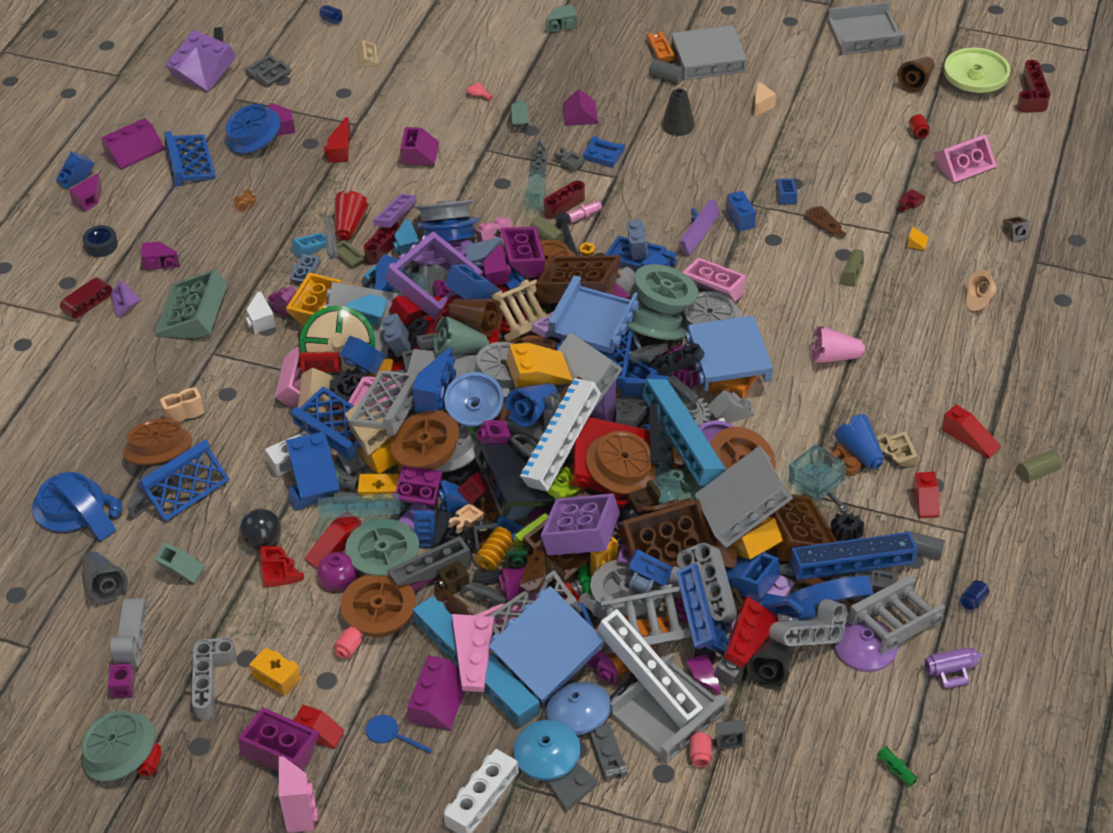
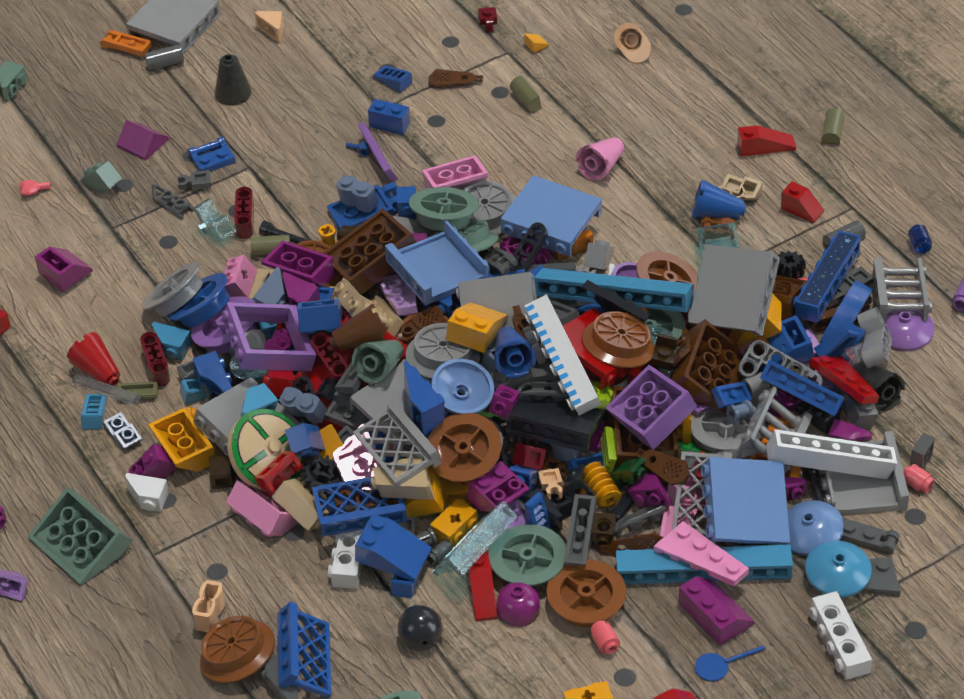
camera: 50 degrees left, 0 degrees up
(276, 567) = (468, 643): red slope -> none
(394, 210) = (128, 326): medium lavender tile -> none
(584, 211) = (272, 208): bright pink pin -> none

